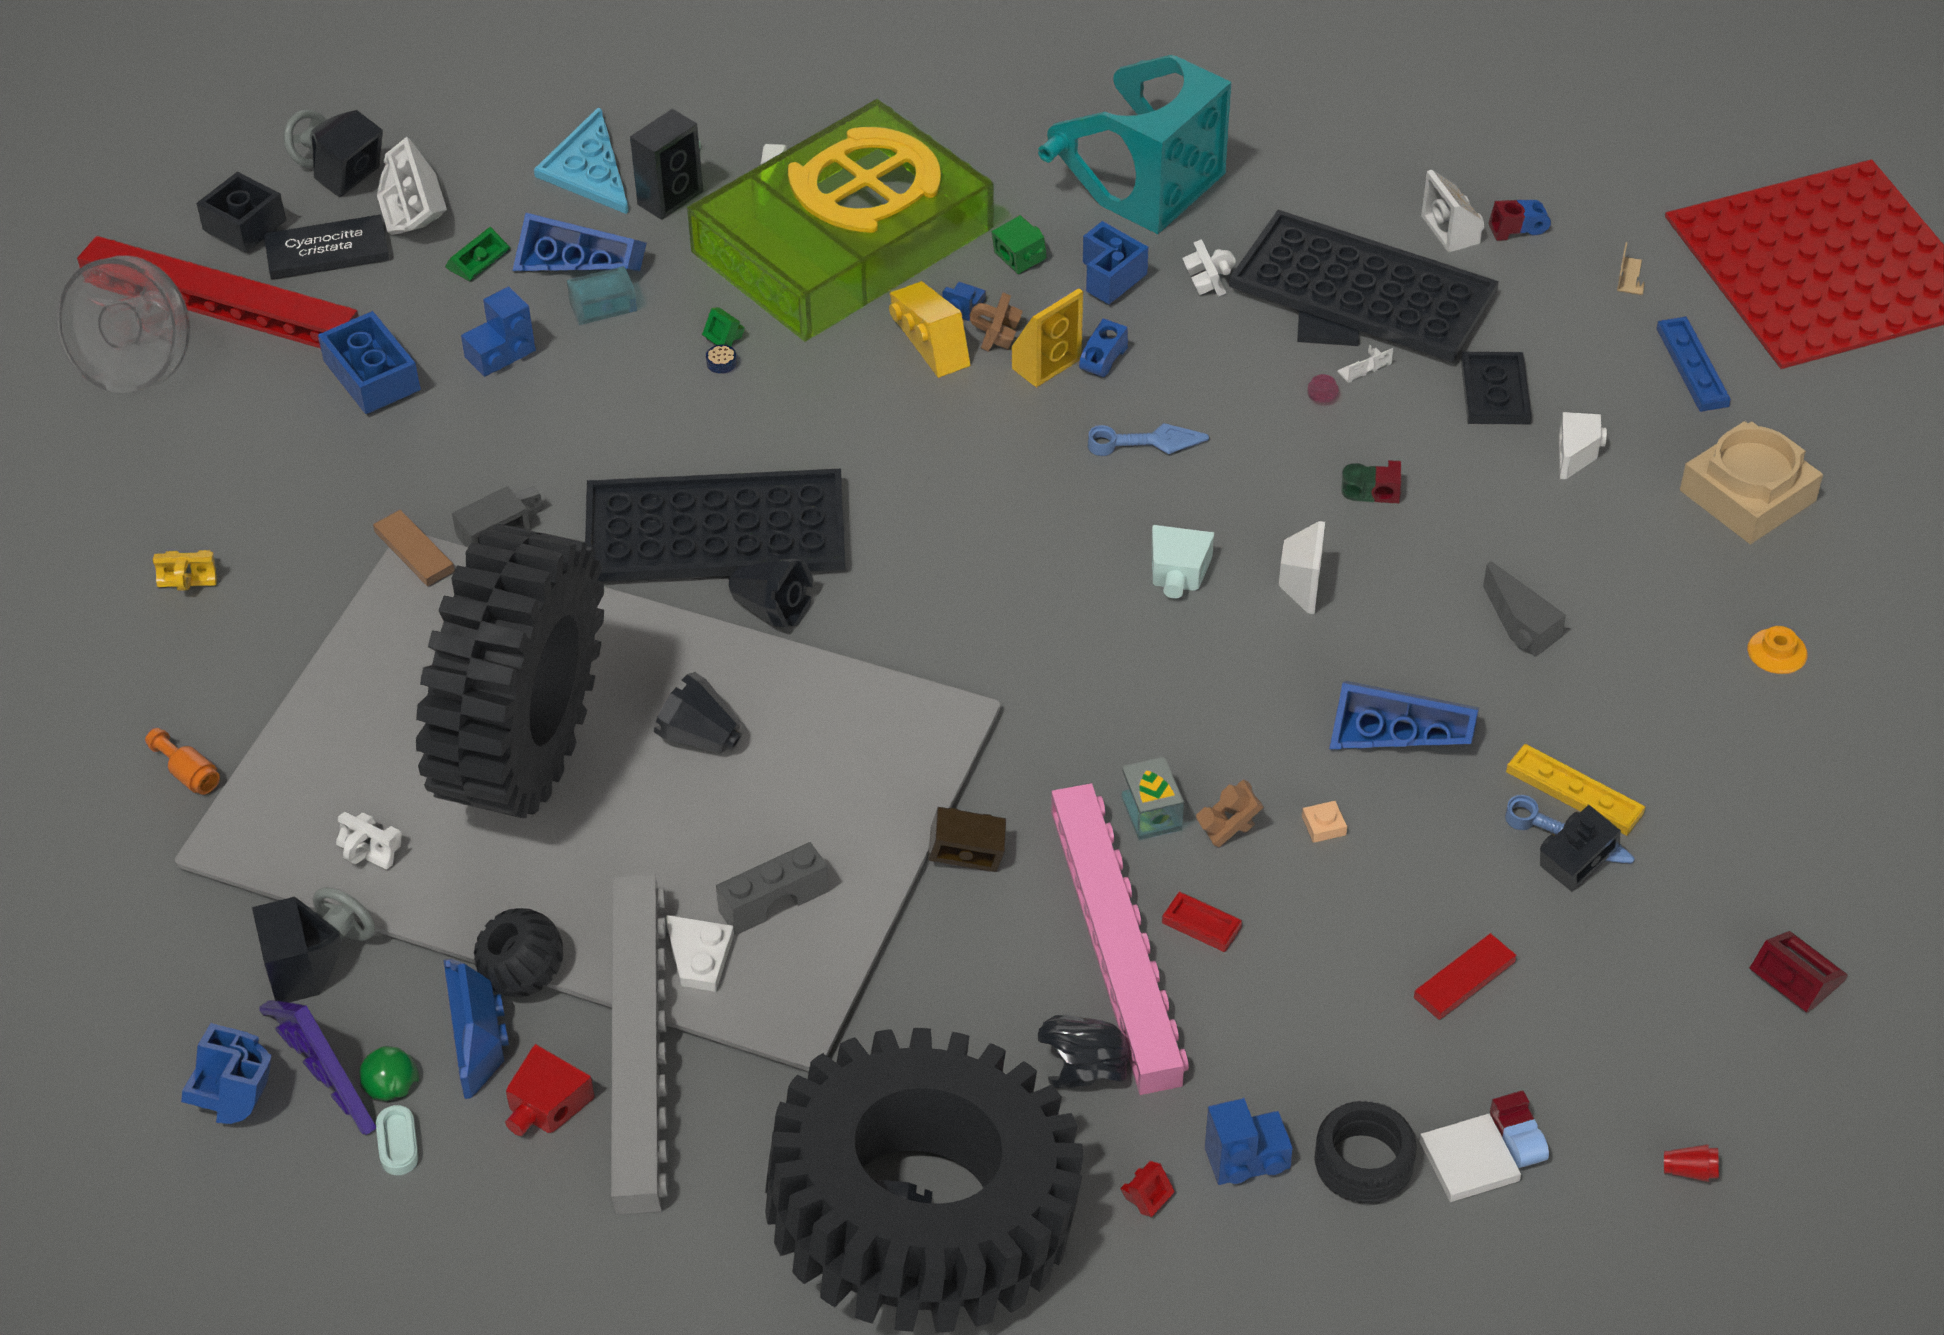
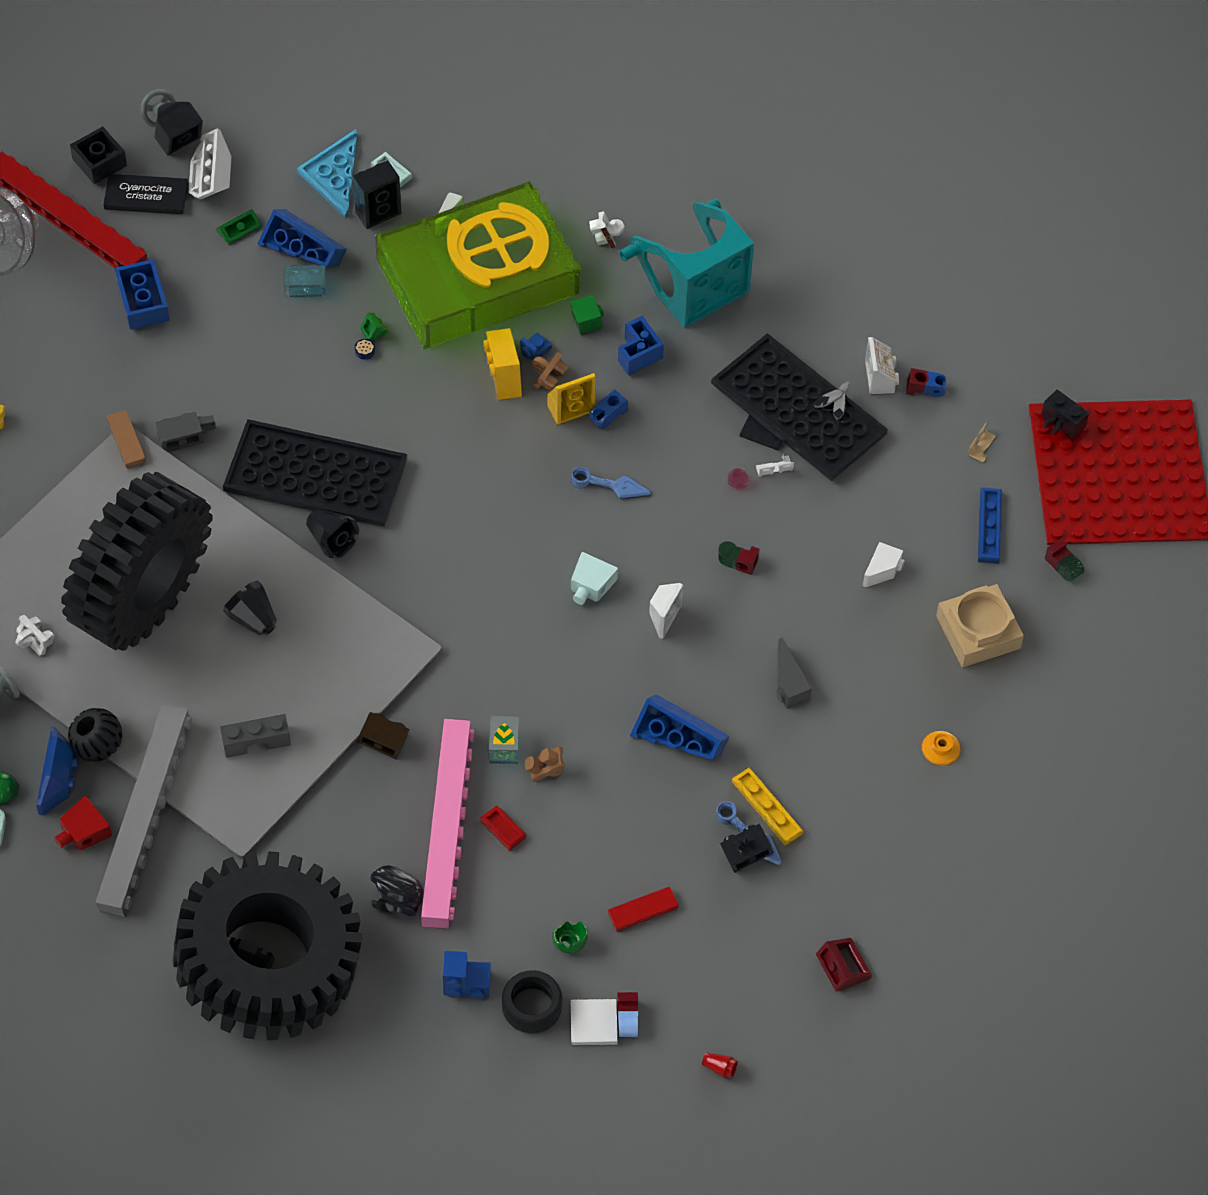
camera: 15 degrees right, 10 degrees up
(503, 337) = (231, 297): blue brick -> none
(699, 950) = (200, 762): white wing -> none
(1006, 136) = (606, 230): none -> white hips
(1148, 1188) = (400, 986): red tile -> none
(1219, 263) = (705, 366): white hips -> none
(1324, 821) = (604, 783): light nougat plate -> none
(1380, 1043) = (570, 937): none -> green hair
(1413, 258) = (836, 396): none -> light grey piece
(1495, 388) = (851, 507): black tile -> none
(1726, 206) = (1064, 414): none -> black brick
(1818, 379) = (1064, 561): none -> leg

